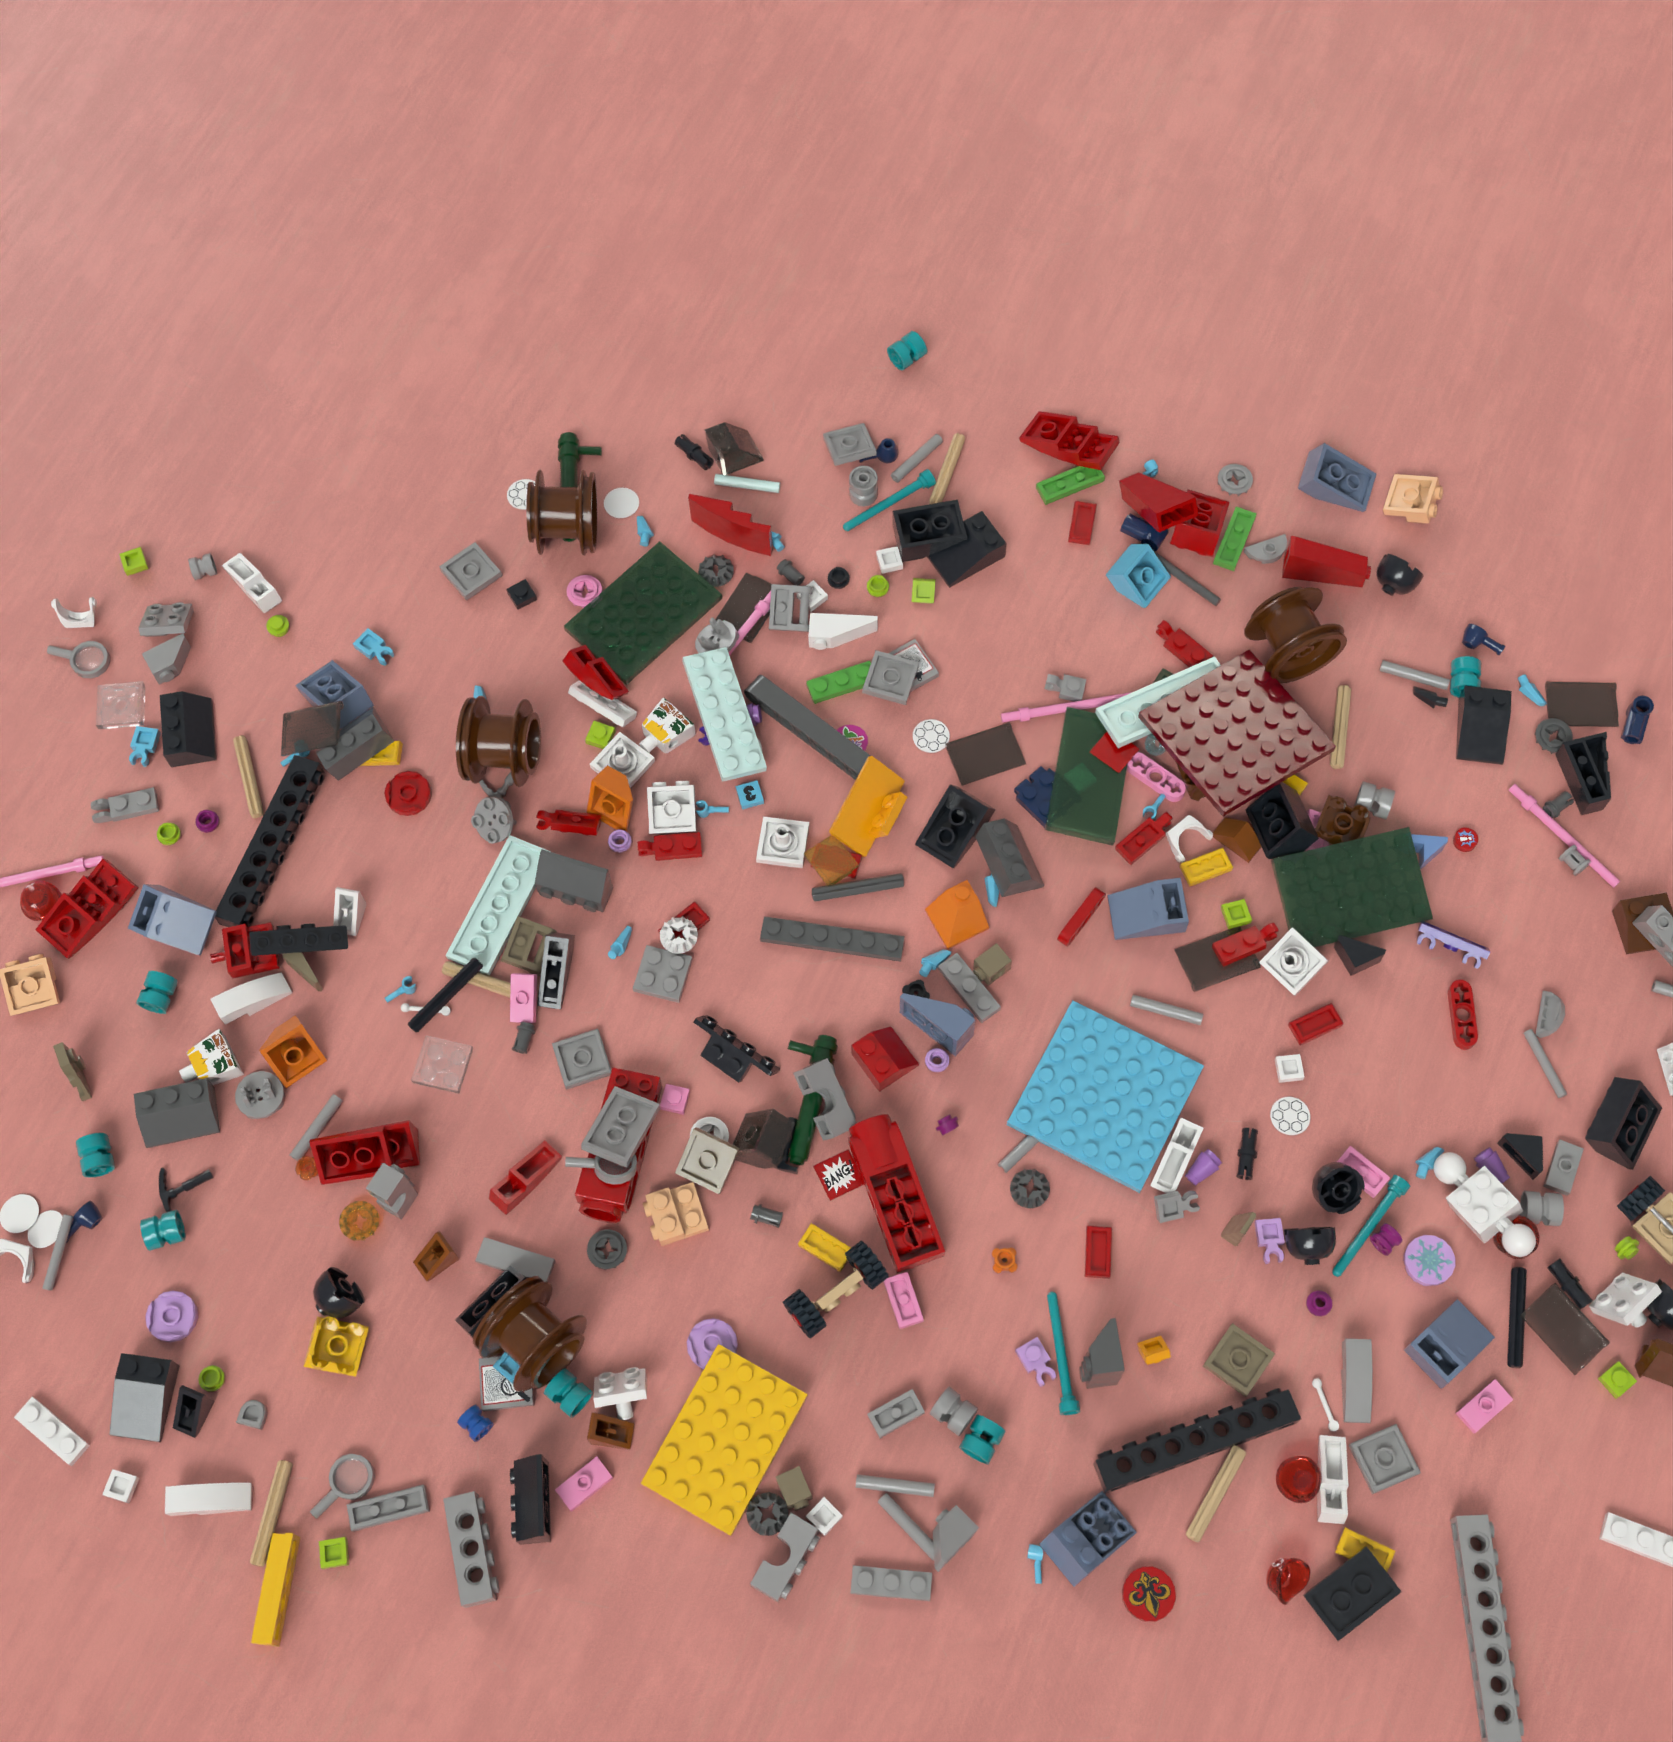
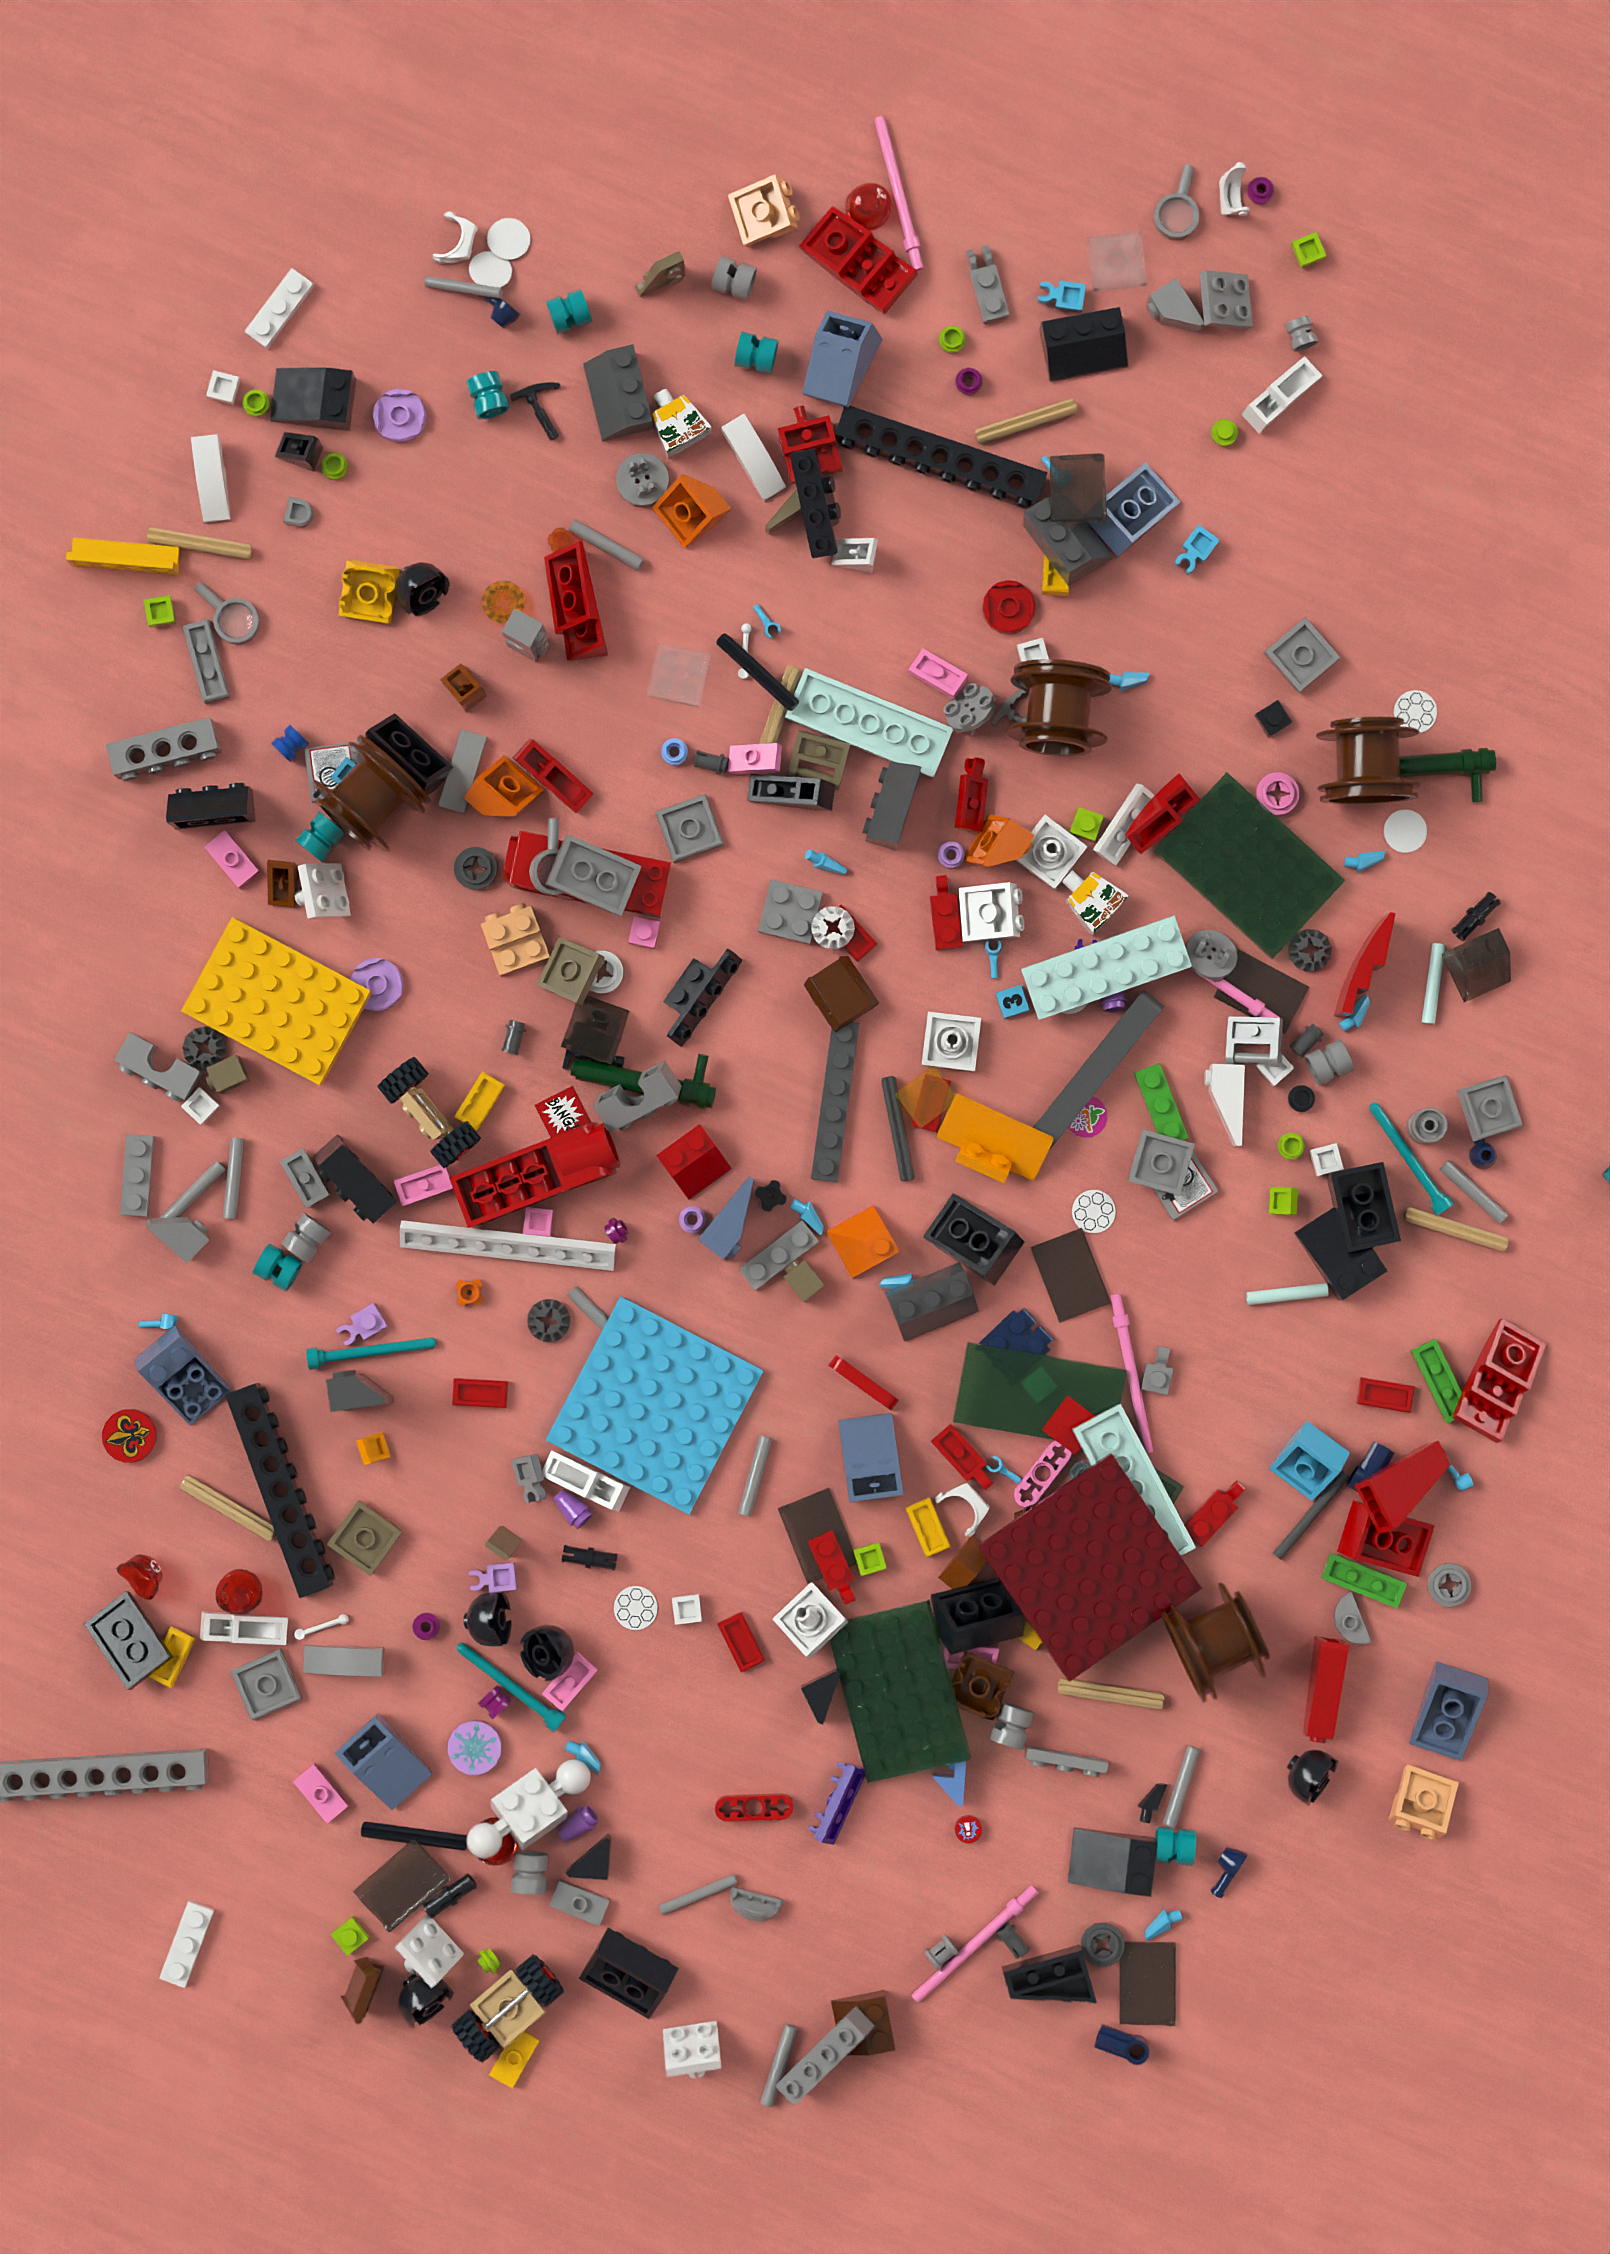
camera: 85 degrees right, 20 degrees up
(80, 601) = (1259, 198): none -> magenta plate
(86, 1011) = (733, 278): none -> light grey wheel
(140, 1454) = (256, 403): none -> lime plate
(449, 773) = (1032, 650): none -> white plate
(460, 847) = (938, 674): none -> bright pink plate
(511, 1063) = (674, 743): none -> light blue plate
(536, 1221) = (502, 790): none -> orange slope
(738, 929) = (840, 993): none -> reddish brown slope
(810, 554) = (1328, 1063): none -> light grey wheel
(897, 1364) = (353, 1180): none -> black wedge
(939, 1195) = (538, 1221): none -> bright pink plate
(960, 1224) = (507, 1245): none -> white plate
(1000, 591) = (1287, 1294): none -> light aqua piece
(1400, 759) = (1066, 1761): none -> light grey plate

